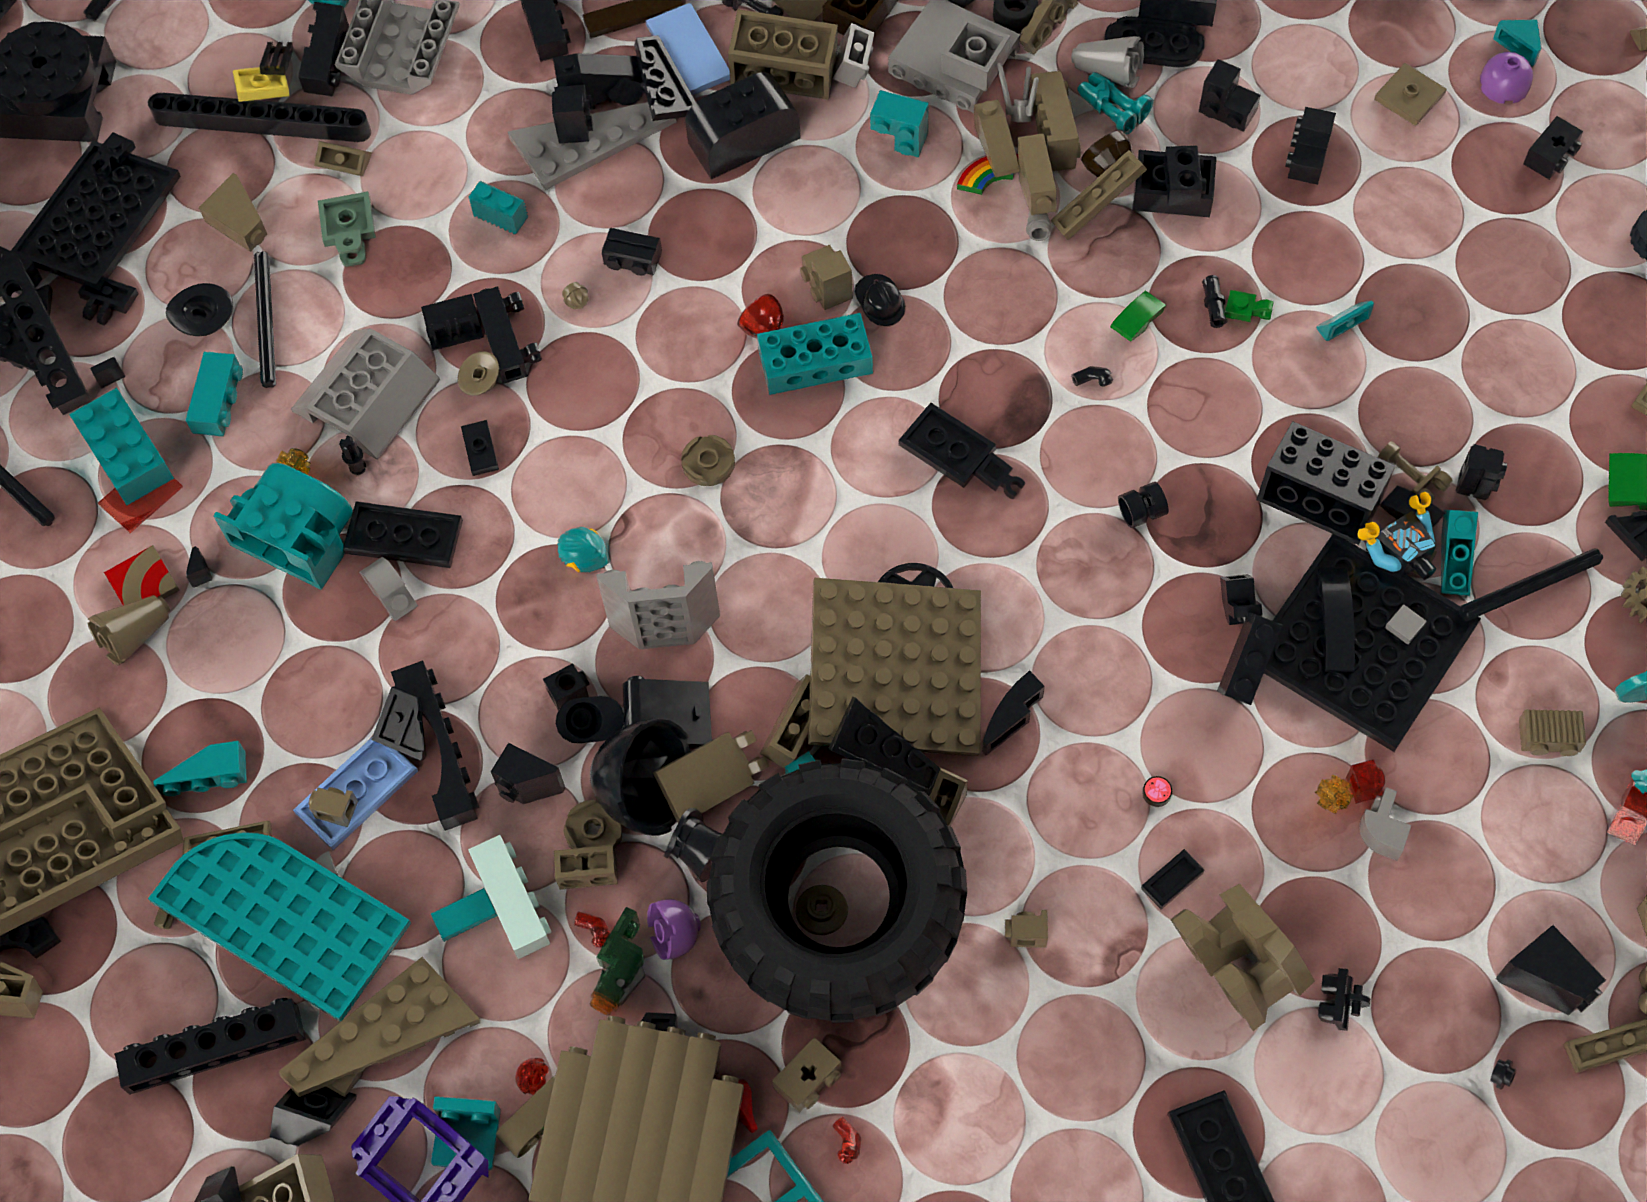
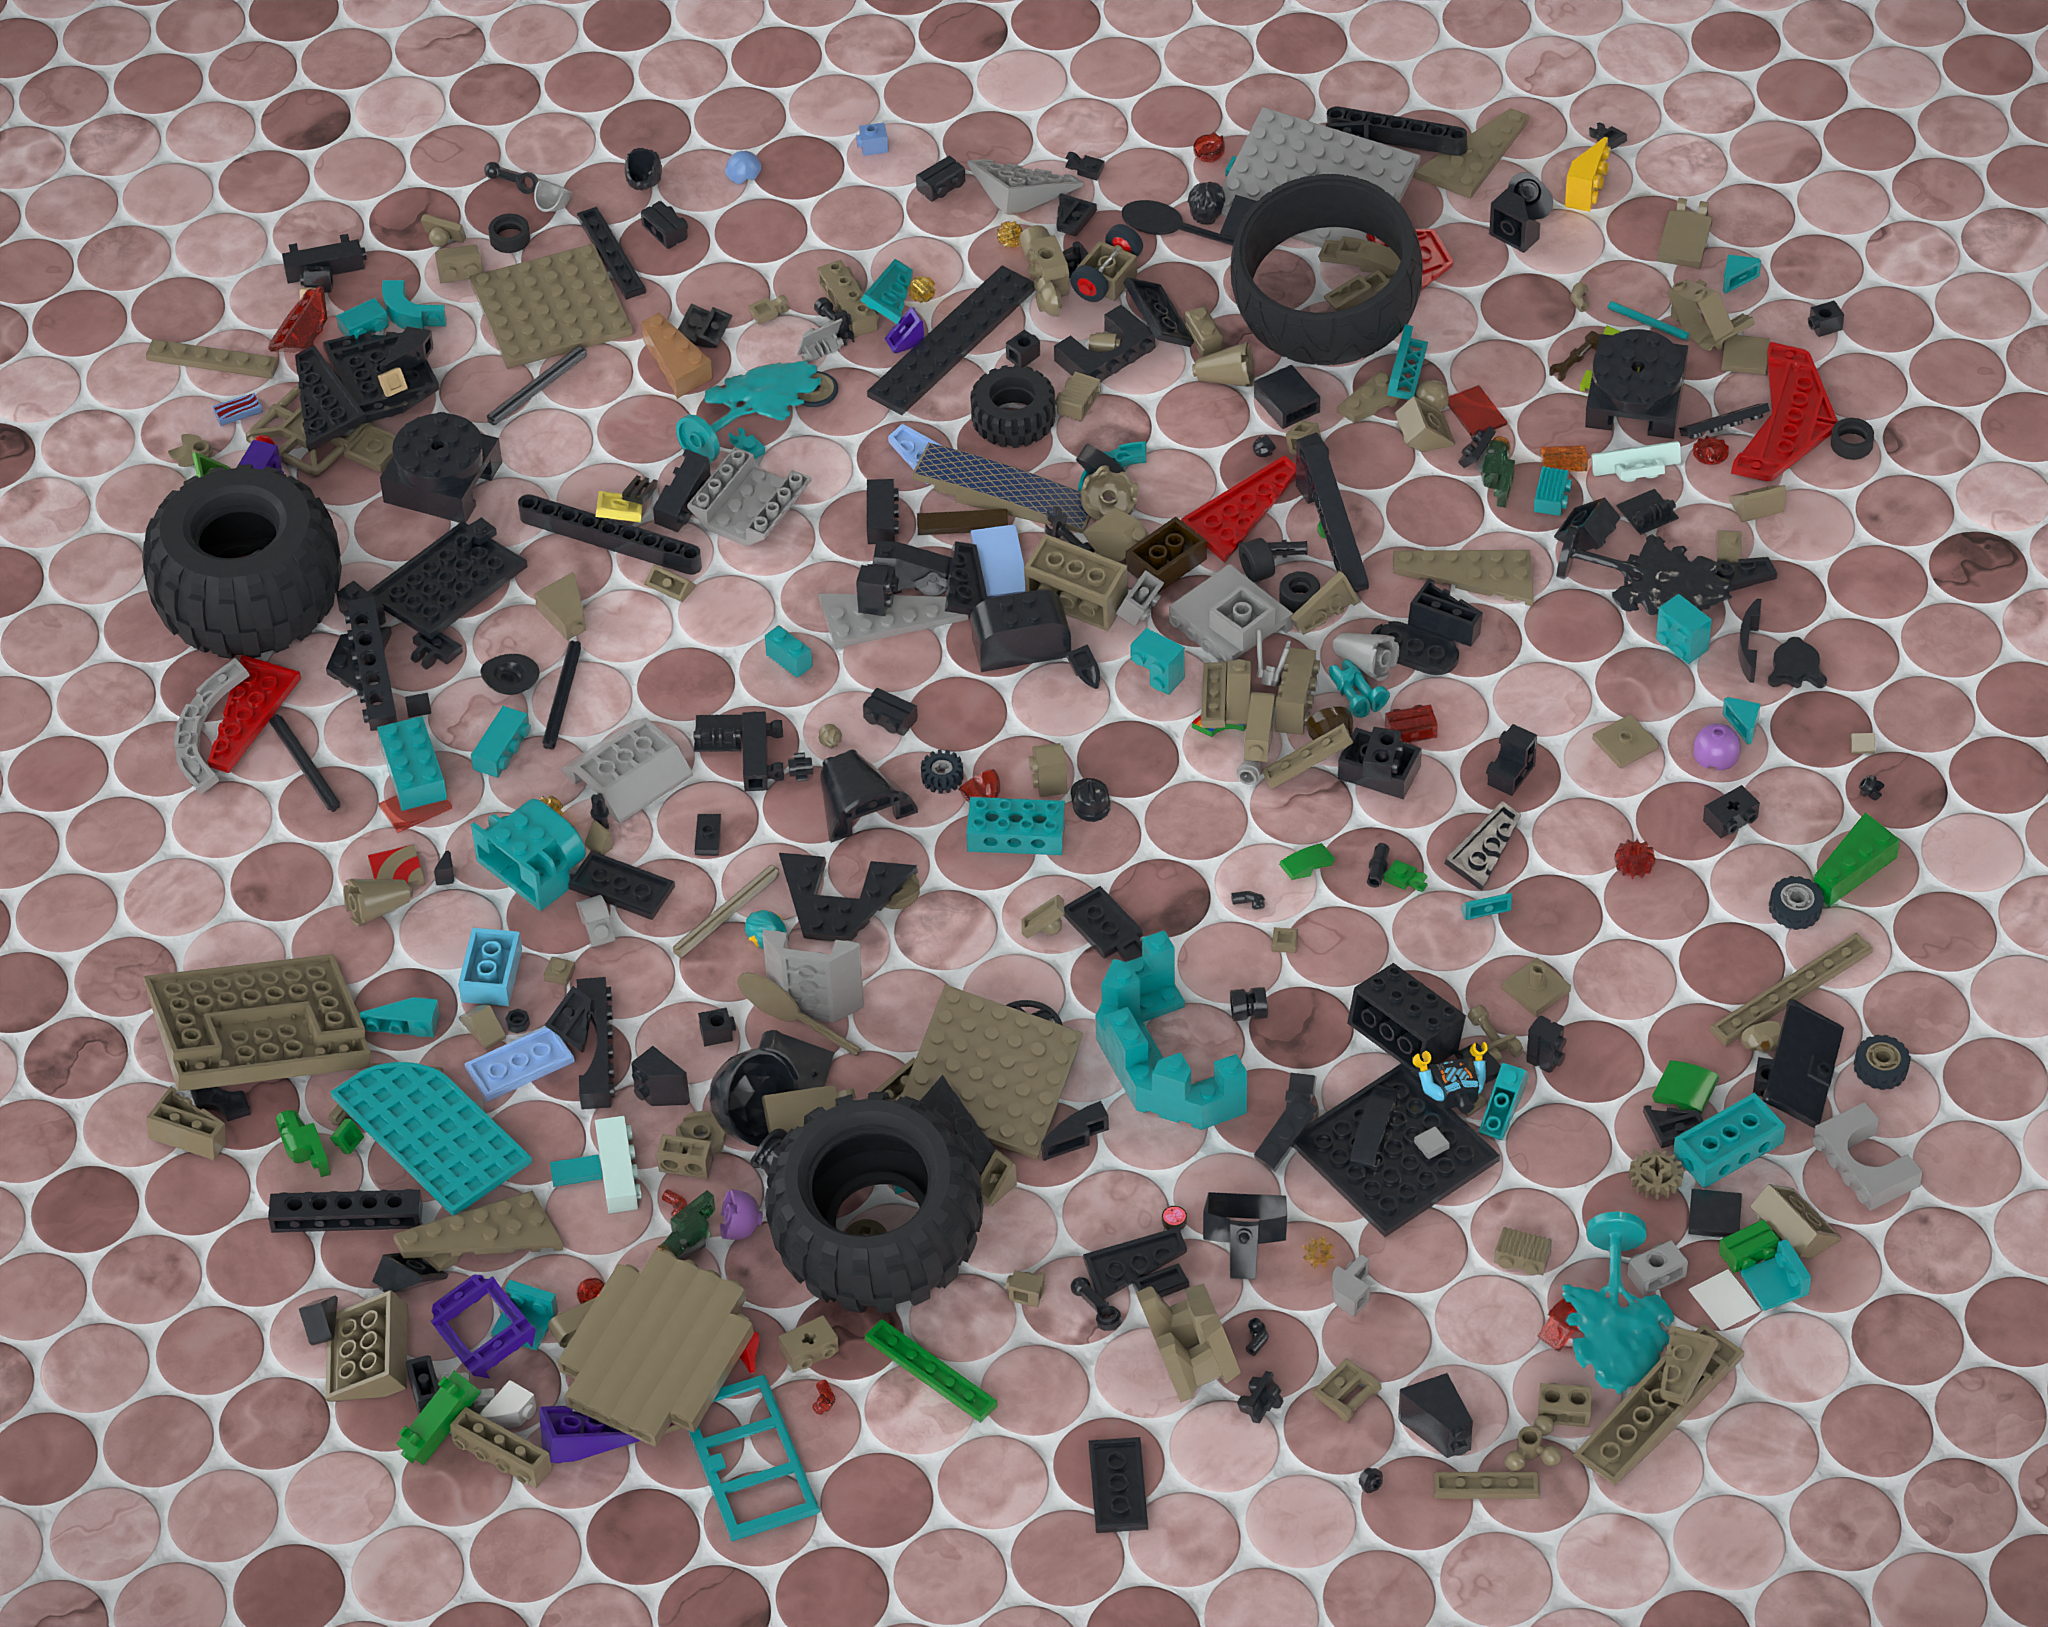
camera: 15 degrees right, 15 degrees down
(132, 966) = (302, 1141): none -> green plate
(184, 945) = (347, 1136): none -> green tile
(286, 680) = (490, 967): none -> medium azure brick
(299, 754) = (483, 1025): none -> dark tan slope
(333, 805) = (498, 1064): dark tan brick -> none
(337, 738) = (517, 1021): none -> black tile
(348, 235) = (652, 645): sand green plate -> none
(360, 486) = (598, 839): none -> dark tan slope
(365, 660) = (559, 971): none -> dark tan plate
(478, 373) = (726, 776): dark tan piece -> none
(529, 537) = (725, 911): none -> dark tan axle
(556, 341) = (800, 766): none -> black gear
(589, 719) = (719, 1046): black piece -> none
(628, 358) = (857, 789): none -> black cone
(632, 642) = (778, 1003): none -> dark tan piece
(654, 513) = (839, 917): none -> black wing
(714, 319) = (942, 781): none -> black bush
(821, 146) = (1085, 666): none -> black plate
(885, 458) = (1044, 918): none -> dark tan tile
(958, 1069) = (931, 1370): none -> green plate
(971, 147) = (1214, 695): none -> dark tan plate
(1085, 908) = (1081, 1287): none -> black piece
(1110, 636) = (1144, 991): none -> teal brick
(1127, 864) = (1122, 1263): none -> black wing
(1148, 414) = (1284, 940): none -> dark tan tile
(1189, 128) = (1414, 723): none -> clear red brick
(1226, 99) = (1454, 706): black brick -> none
(1256, 808) = (1244, 1235): none -> black piece
(1306, 917) = (1258, 1334): none -> black arm
(1315, 254) = (1482, 848): none -> wing
(1365, 781) = (1348, 1247): clear red brick -> none
(1420, 958) = (1341, 1384): none -> dark tan plate
(1433, 402) = (1536, 987): none -> dark tan tile
(1477, 226) = (1634, 858): none -> clear red gear
(1530, 584) = (1554, 1140): black axle -> none

